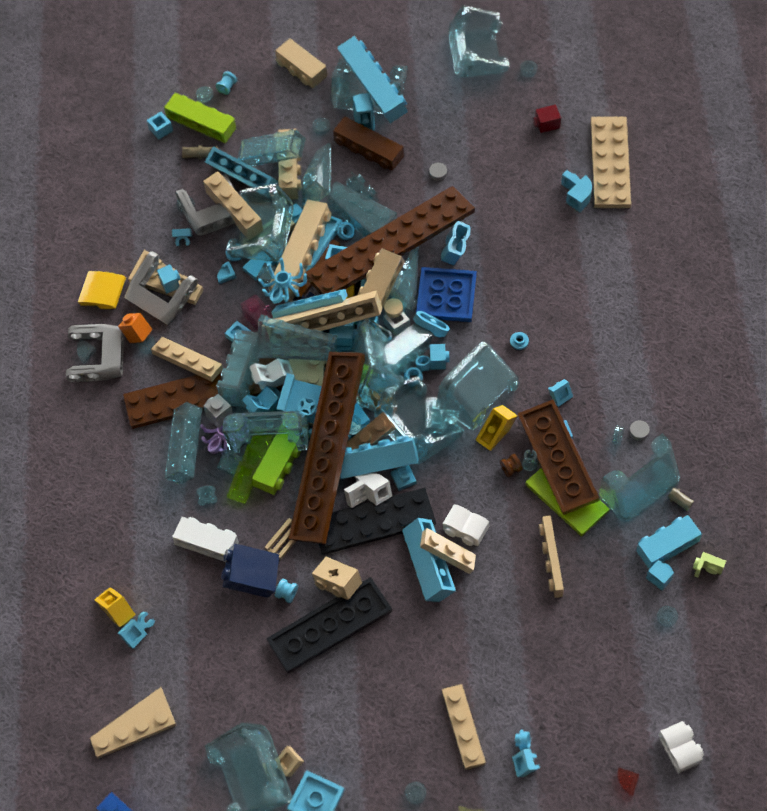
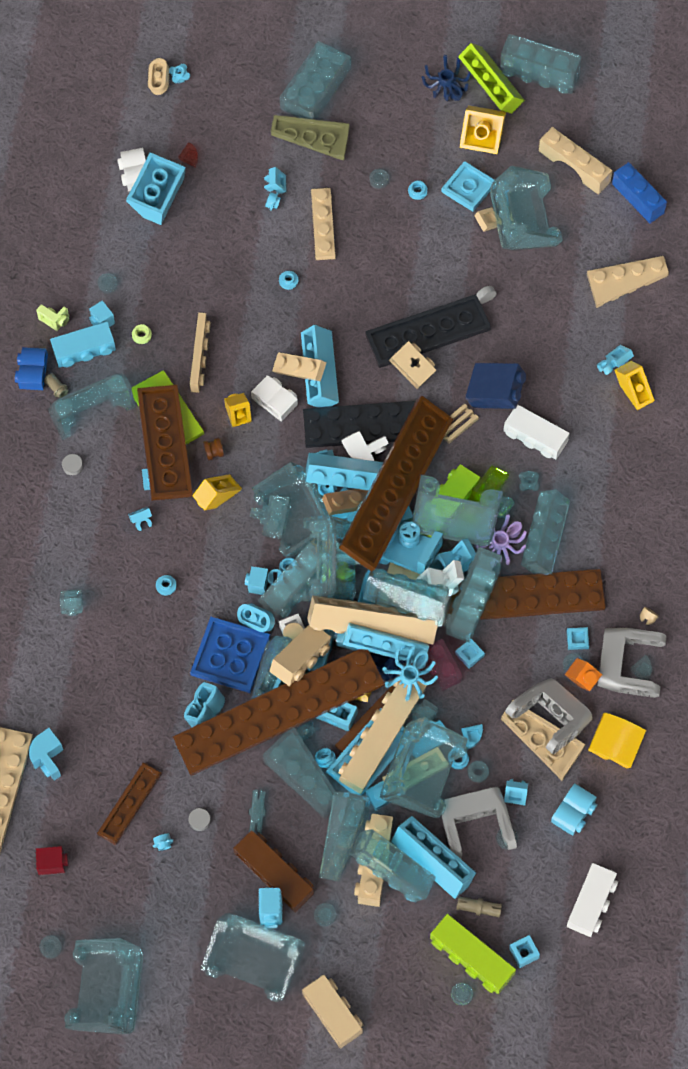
camera: 170 degrees left, 5 degrees up
(79, 395) = (648, 614): none -> tan hinge
(110, 169) = (592, 900): none -> white brick
(132, 230) = (574, 809): none -> medium azure brick
(144, 366) = (577, 638): none -> medium azure tile
(169, 278) = (538, 724): medium azure plate -> none
(187, 359) = (530, 631): tan plate -> none
(216, 241) = (478, 765): none -> clear light blue plate
(217, 409) = (505, 546): light grey brick -> none
(226, 82) = (432, 1003): medium azure bush -> none
(244, 216) = (456, 804): tan arch -> none
(276, 674) = (486, 294): none -> light grey tile
(286, 590) = (463, 368): medium azure wheel -> none
(357, 183) = (290, 803): clear light blue hinge -> none
(370, 779) = (417, 185): none -> medium azure plate
(372, 79) = (250, 936): medium azure brick -> none
(392, 184) = (257, 811): none -> clear light blue pin
(462, 149) = (162, 842): none -> medium azure plate
(475, 385) = (224, 526): clear light blue windscreen -> none
(483, 659) = (288, 284): none -> medium azure plate
(498, 173) = (129, 803): none -> reddish brown tile
(498, 502) = (238, 409): none -> yellow slope
(529, 461) = (193, 449): clear light blue pin -> none
(602, 309) = (71, 602): none -> clear light blue plate
(615, 562) = (141, 329): none -> yellowish green plate
(618, 435) = (96, 459): clear light blue tile -> none
(649, 719) = (156, 188): none -> medium azure slope
(709, 509) = (32, 368): none -> blue brick

